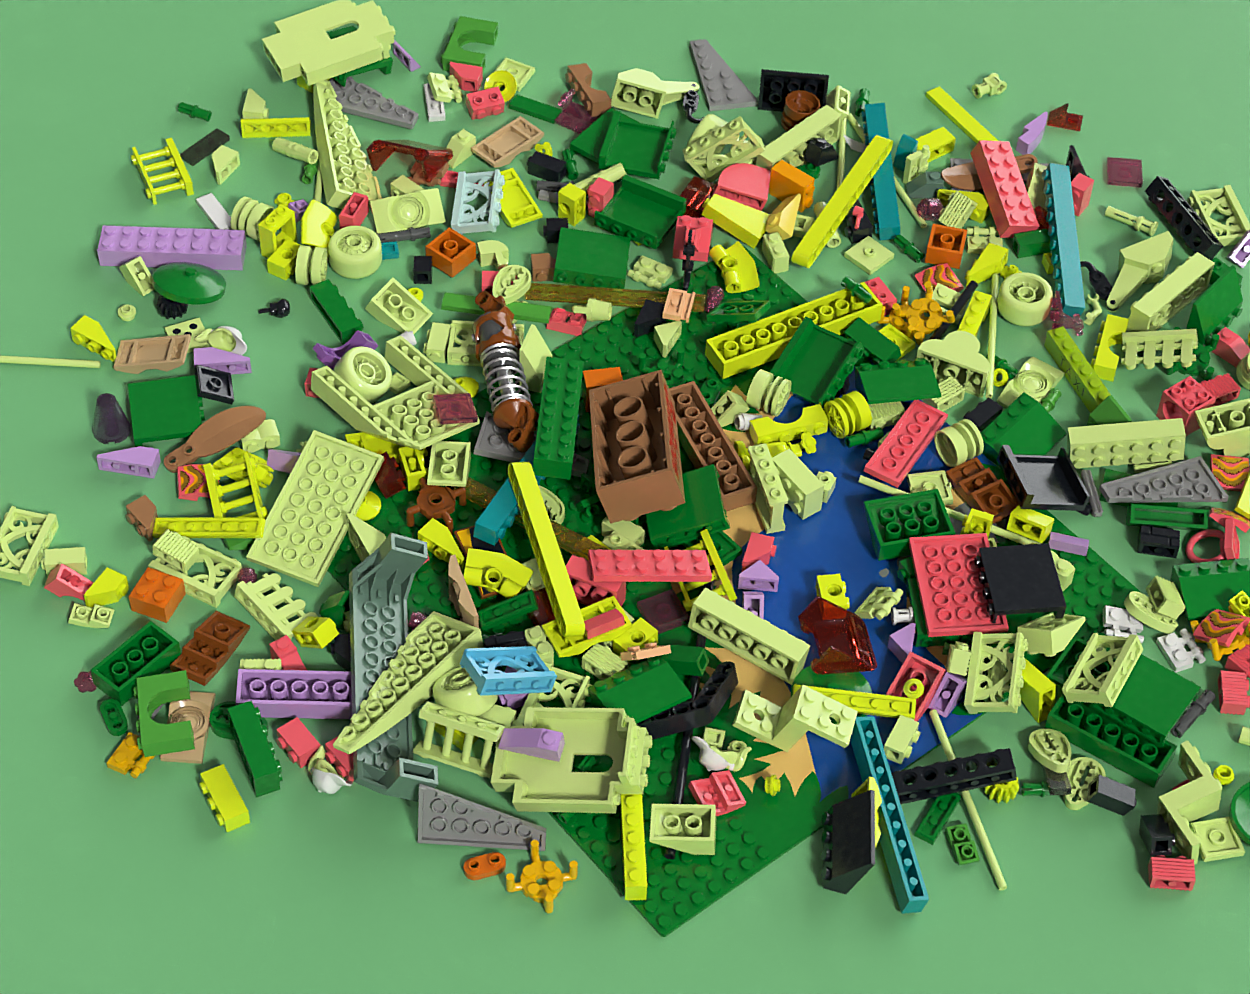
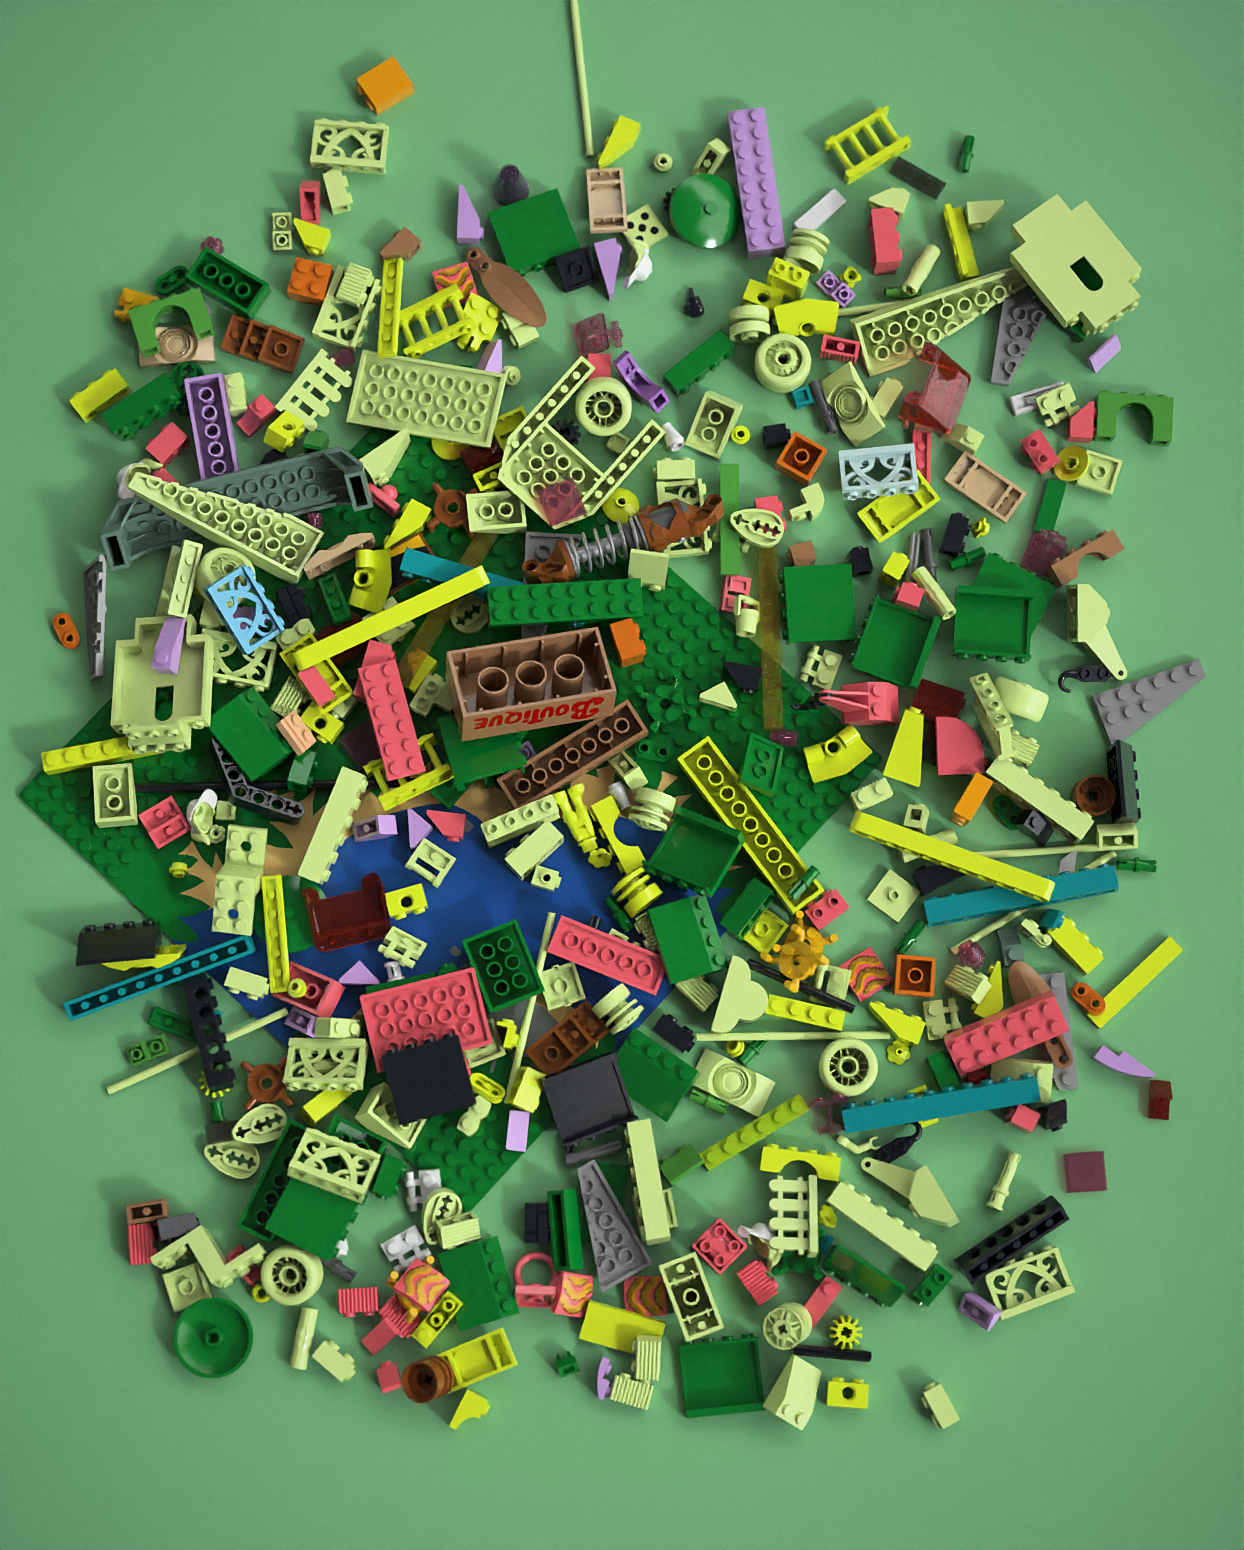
camera: 80 degrees right, 30 degrees up
(261, 168) = (884, 241): none -> coral brick
(286, 382) = (594, 337): none -> clear pink plate
(541, 870) = (49, 674): yellow plate -> none
(678, 305) = (755, 701): light nougat plate -> none
(784, 217) = (917, 795): light yellow slope -> none
(790, 568) = (434, 857): none -> yellowish green plate
(858, 212) = (938, 875): coral hand -> none
(972, 143) = (1085, 1000): none -> orange plate
(990, 85) = (1195, 1008): yellowish green connector -> none
(1015, 725) = (255, 1088): none -> dark orange plate
(1111, 795) = (214, 1184): brick -> none
(1138, 858) = (148, 1211): none -> medium nougat brick
(1178, 374) = (759, 1237): none -> hair
(1211, 732) = (279, 1281): none -> yellowish green wheel

